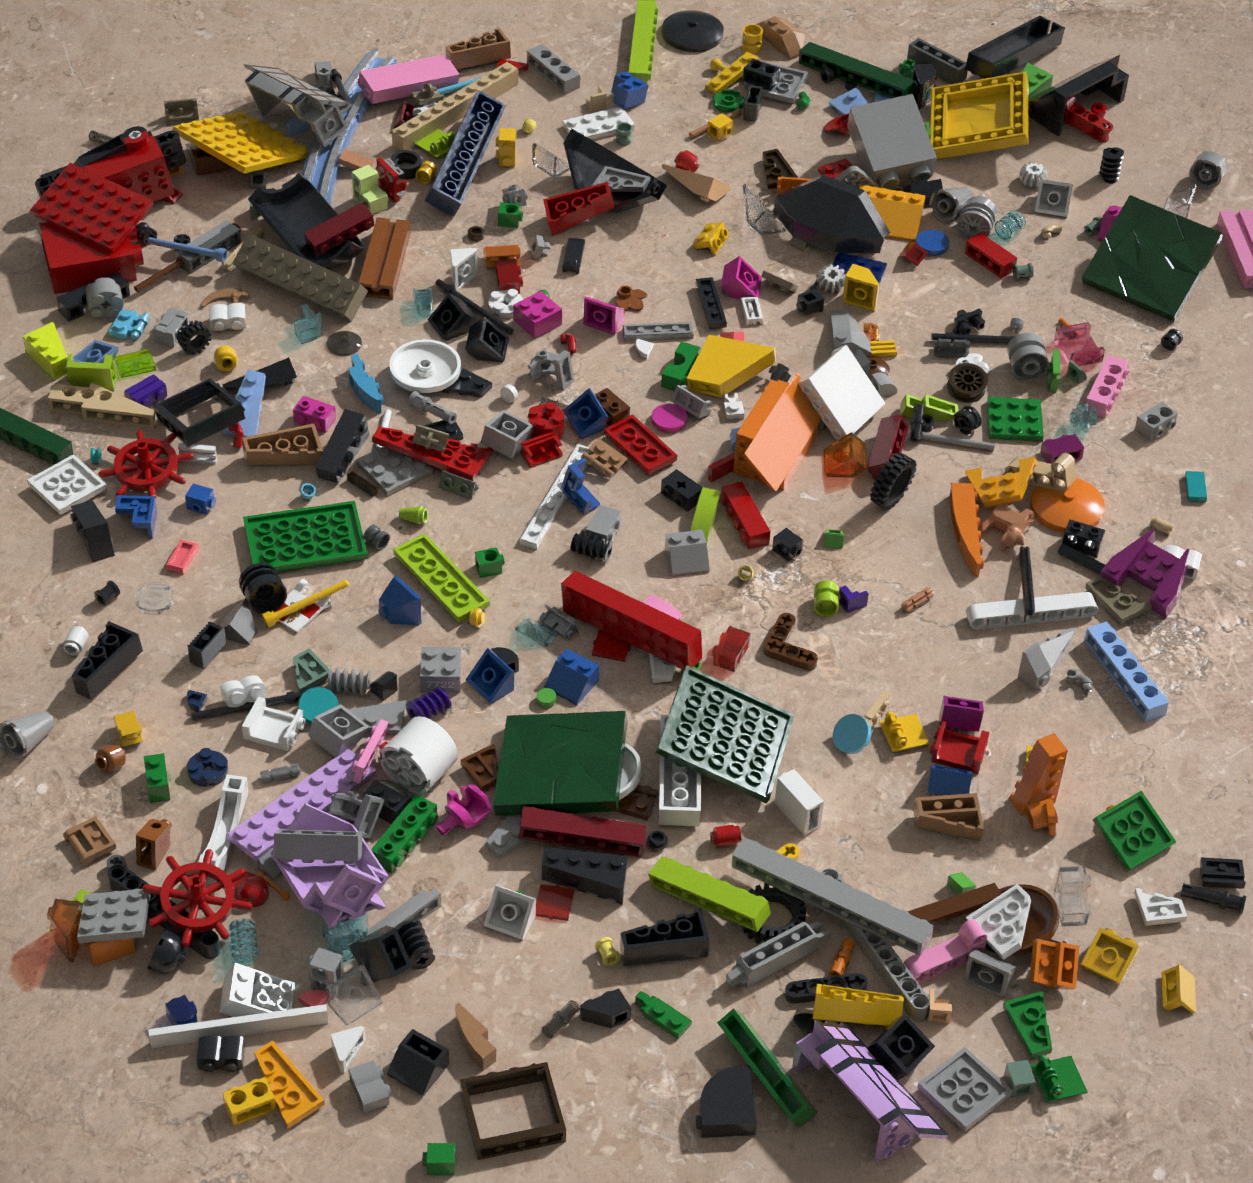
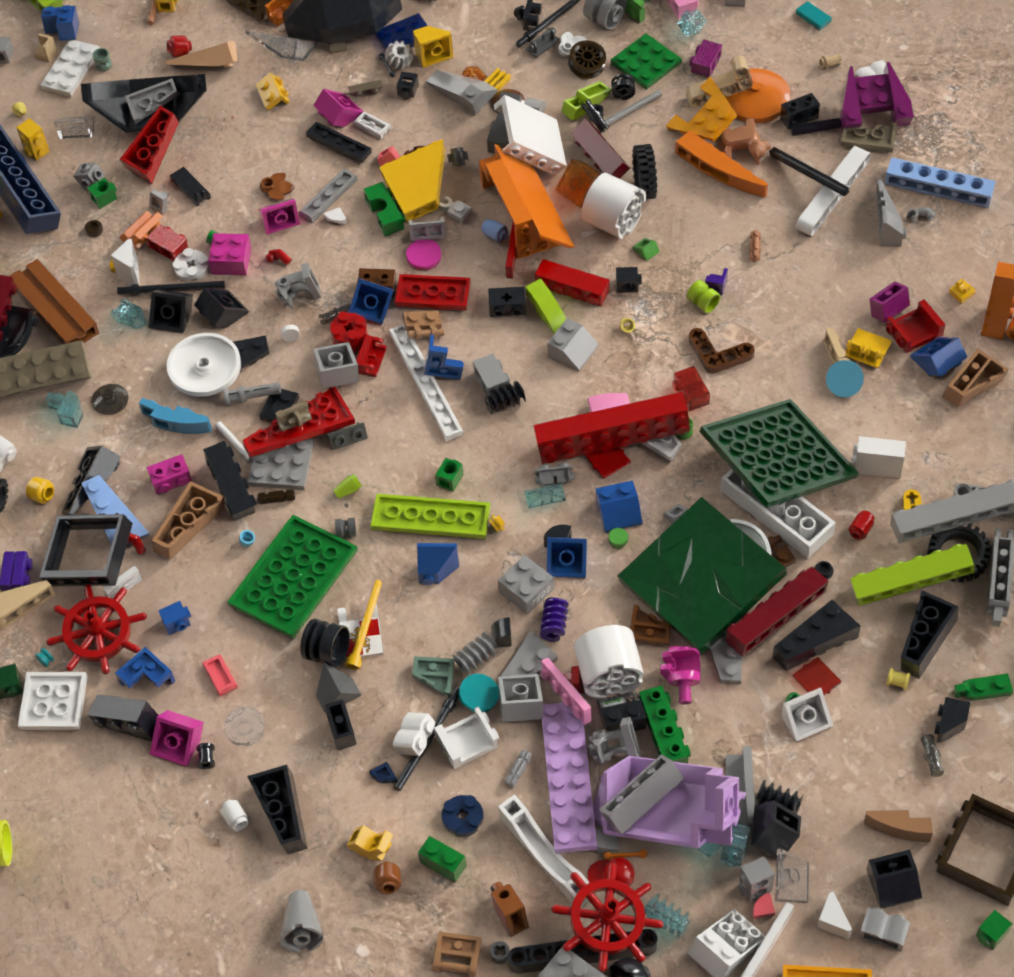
camera: 40 degrees left, 10 degrees up
(104, 565) = (176, 737): none -> dark pink slope
(838, 484) = (613, 205): none -> white brick

